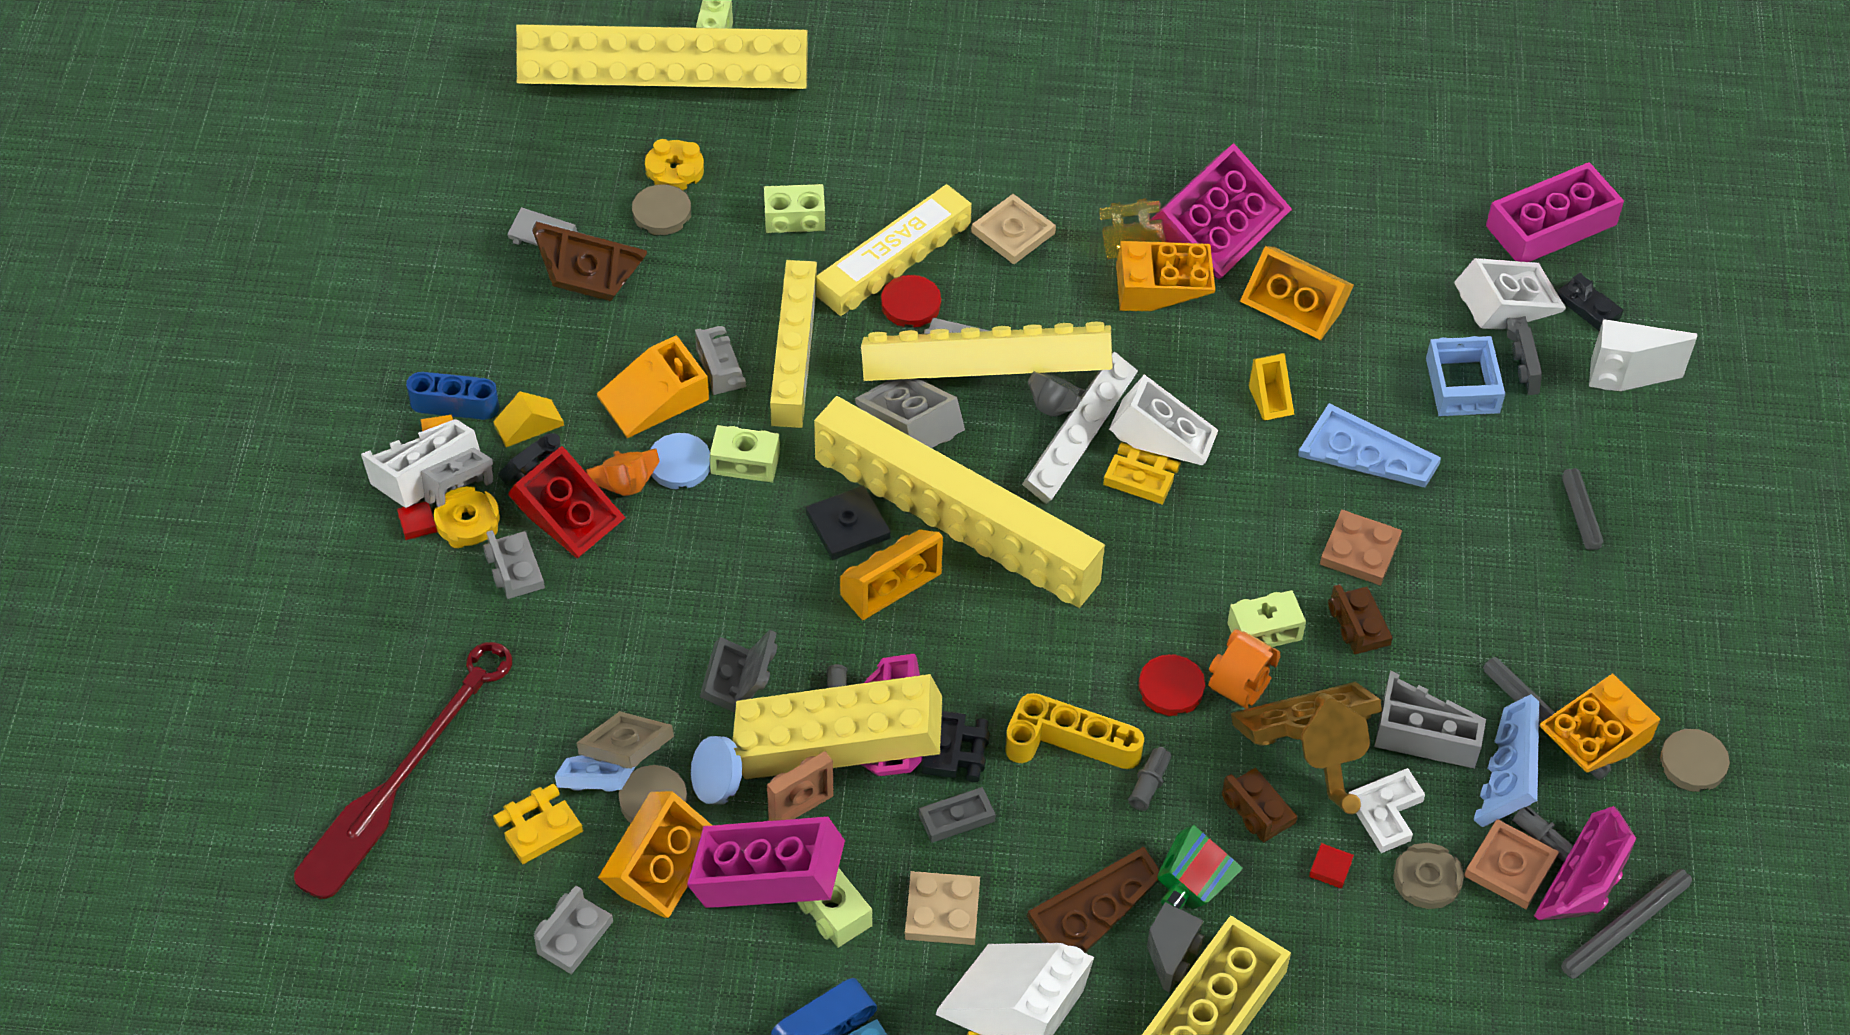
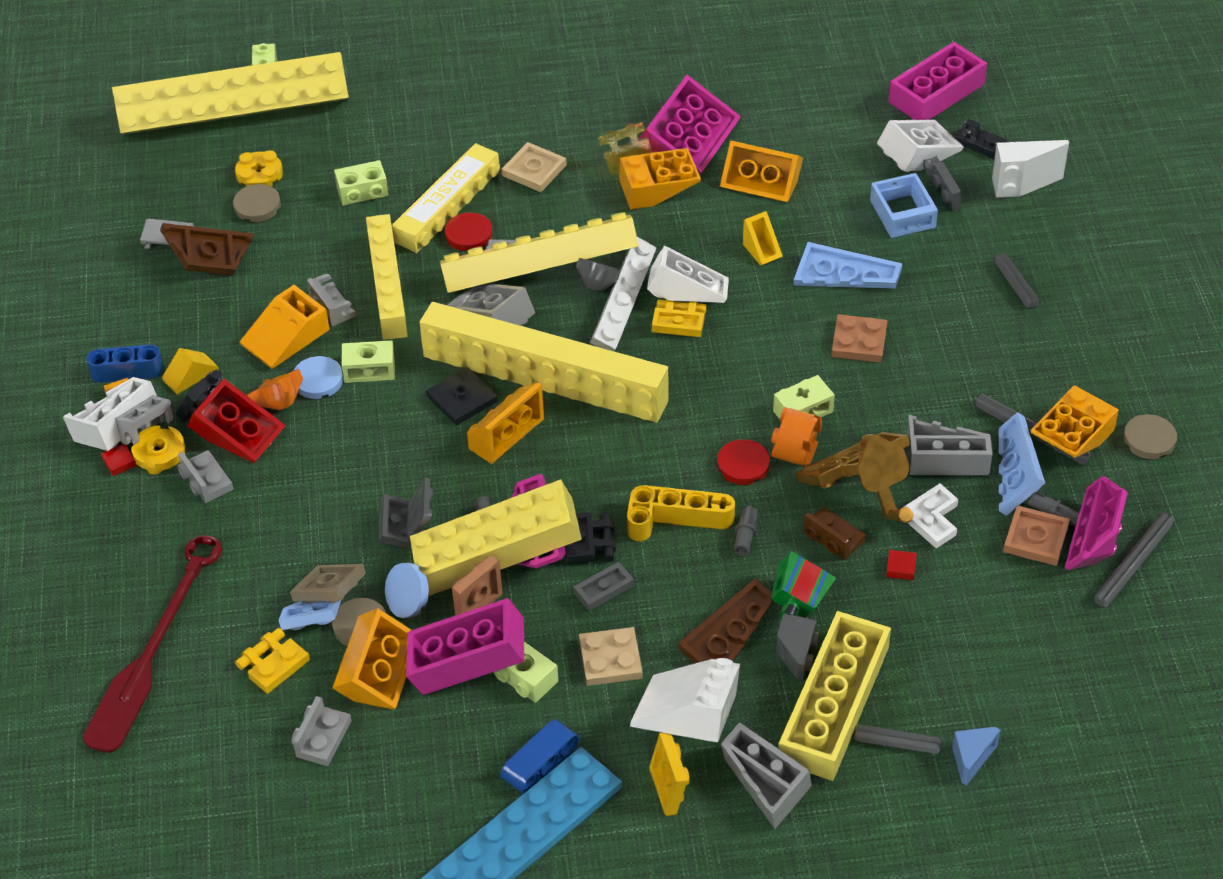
camera: 10 degrees left, 5 degrees down
(1359, 619) = (872, 388): reddish brown bracket -> none
(1428, 876) = (976, 557): dark tan tile -> none

